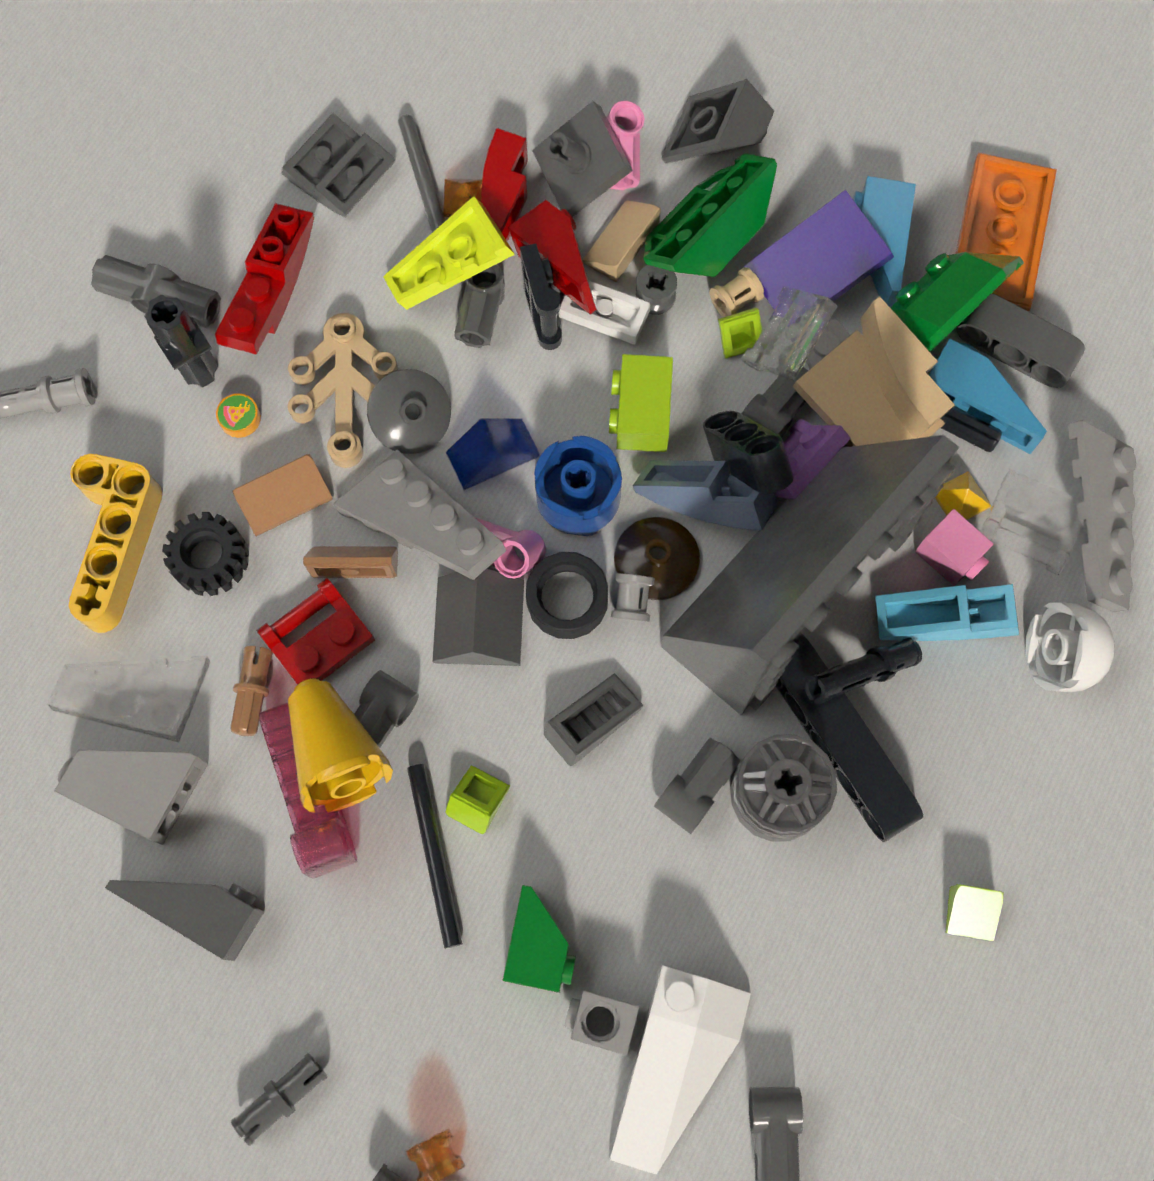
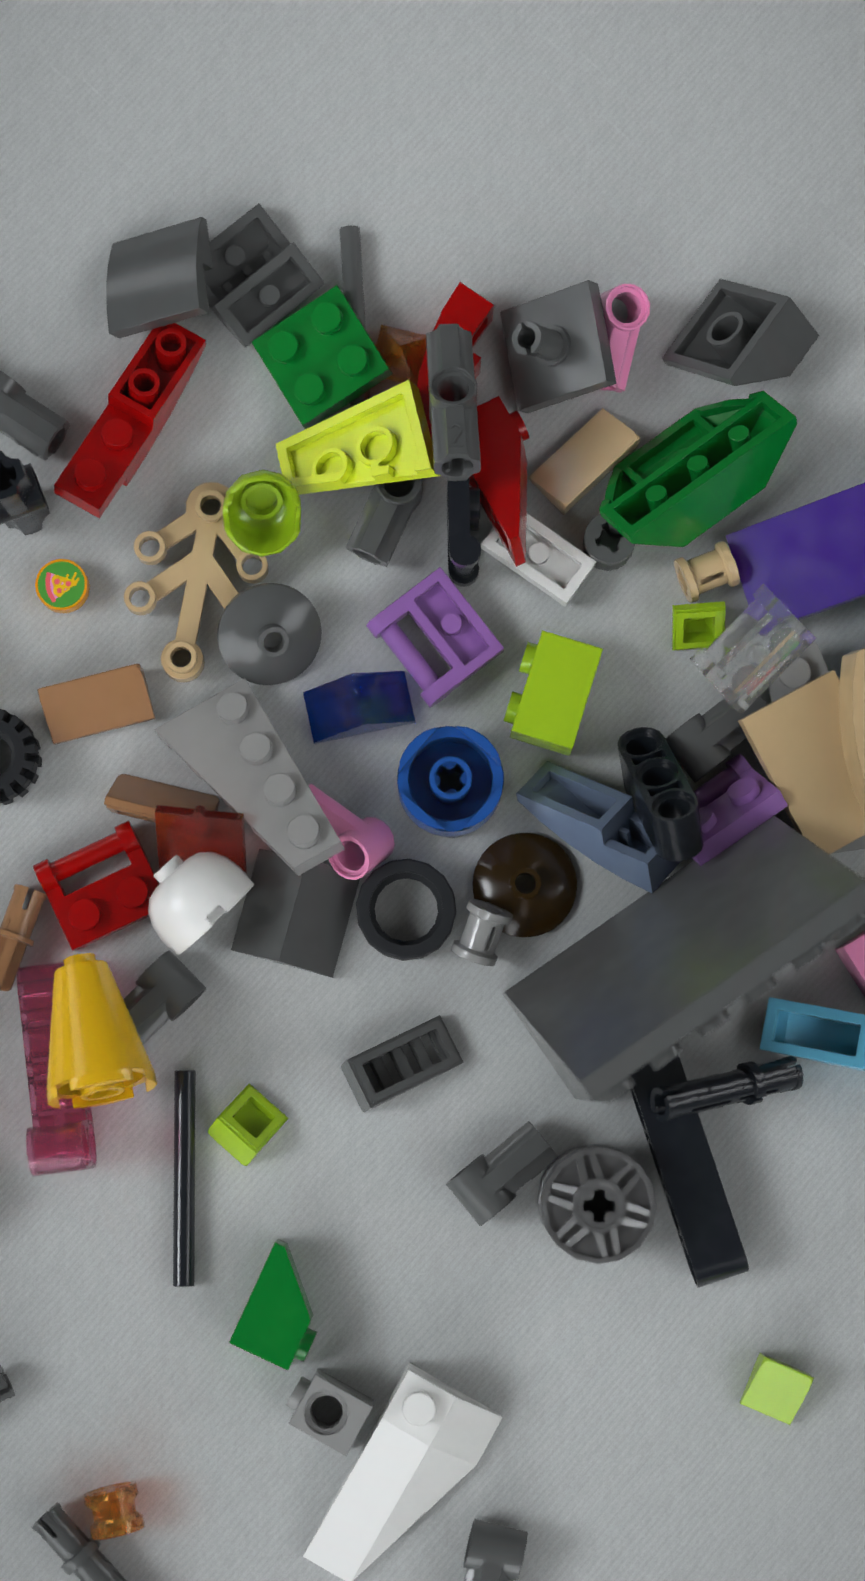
camera: 10 degrees right, 10 degrees up
(267, 177) = (158, 278): none -> dark grey slope
(383, 320) = (262, 513): none -> lime hair
(390, 581) = (199, 830): none -> clear red piece
(392, 618) = (194, 896): none -> white cylinder
(404, 206) = (322, 357): none -> green plate
(512, 199) = (453, 402): none -> dark grey piece
(548, 376) = (448, 625): none -> medium lavender plate

